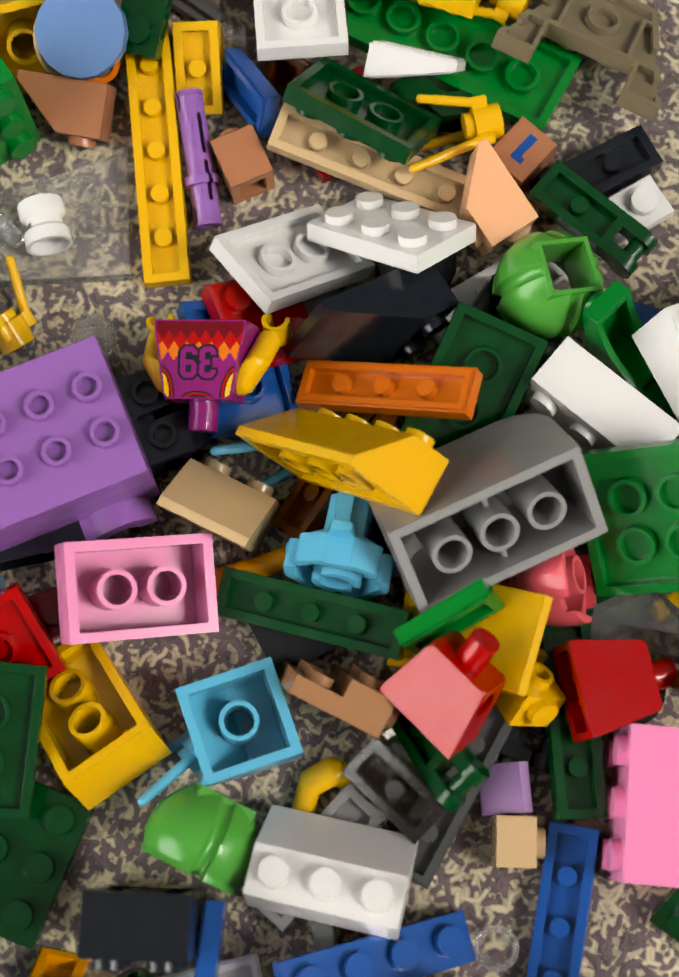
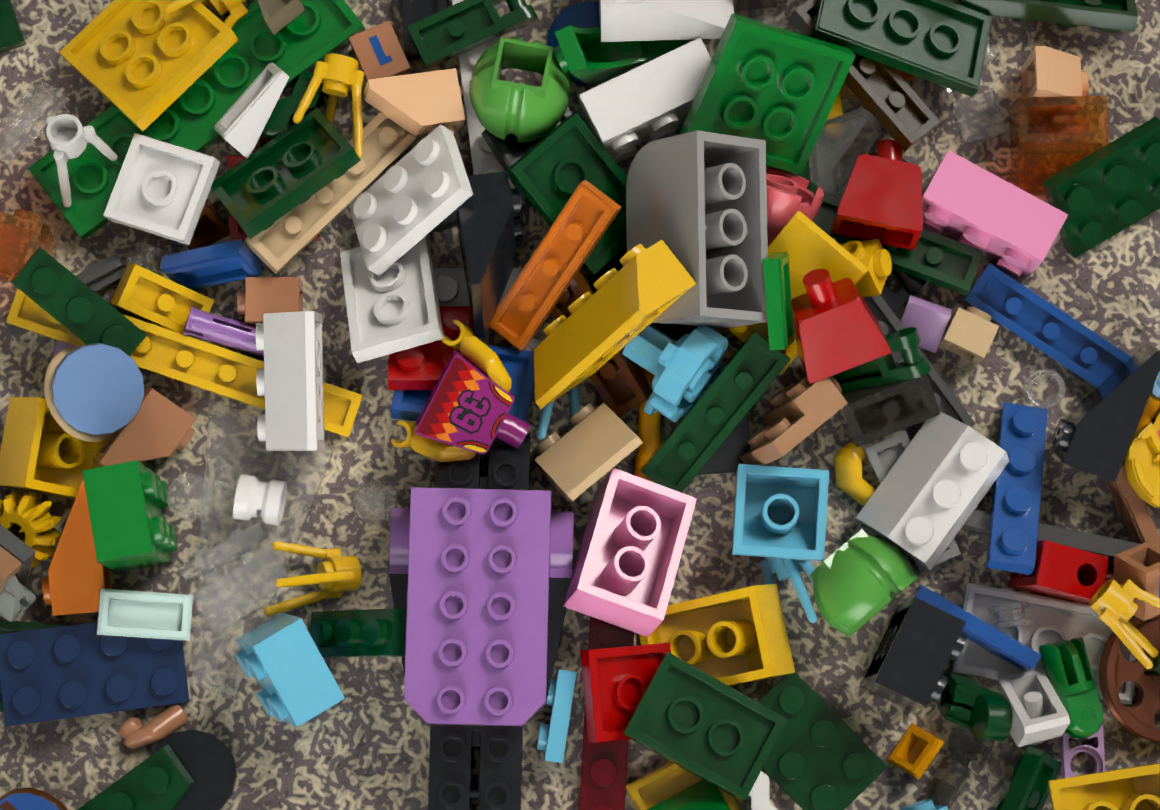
camera: 70 degrees left, 5 degrees up
(26, 166) = (189, 496): none -> clear plate
(166, 203) = (291, 381): none -> white slope

